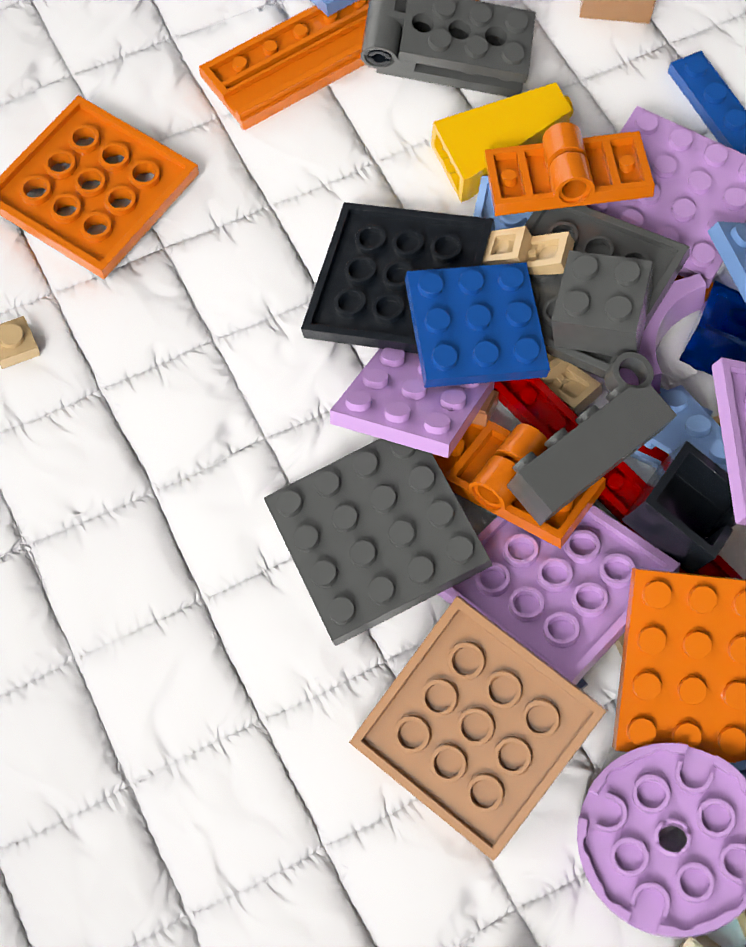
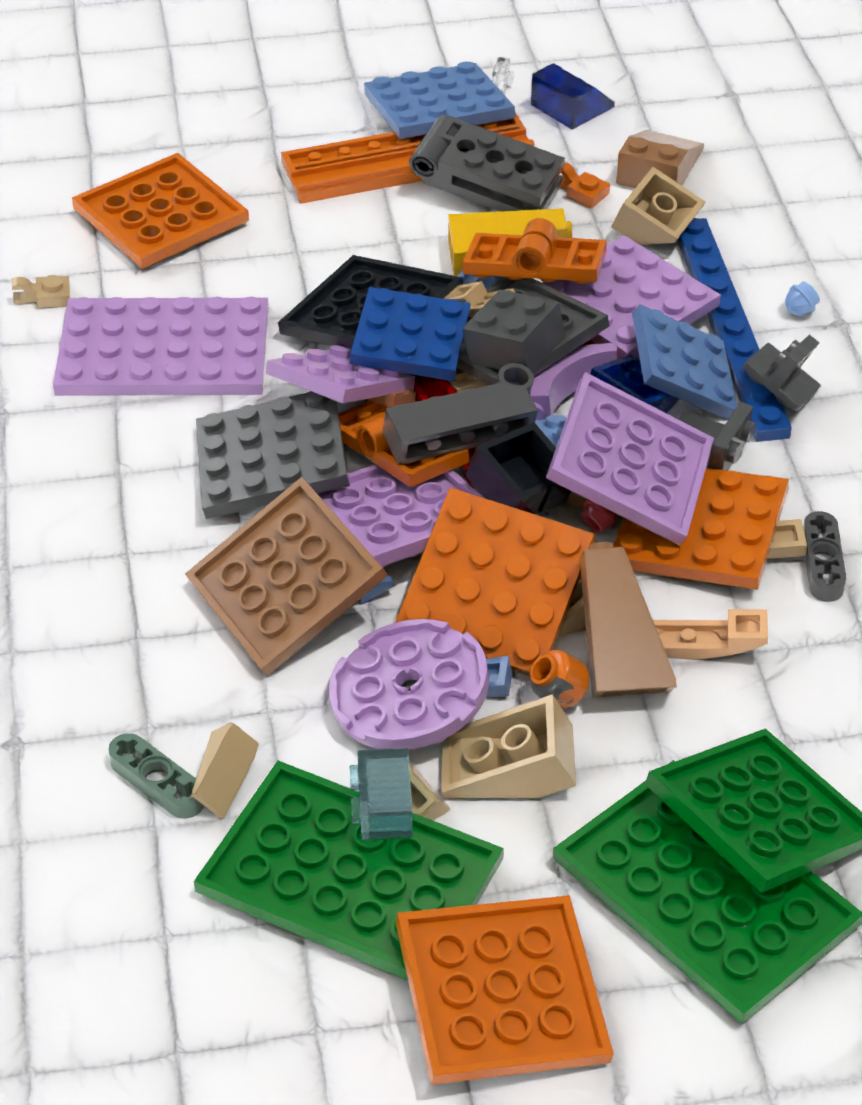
camera: 20 degrees right, 20 degrees down
(175, 393) = (162, 346): none -> lavender plate
(555, 35) = (584, 188): none -> orange plate
(654, 58) = (657, 210): none -> tan slope

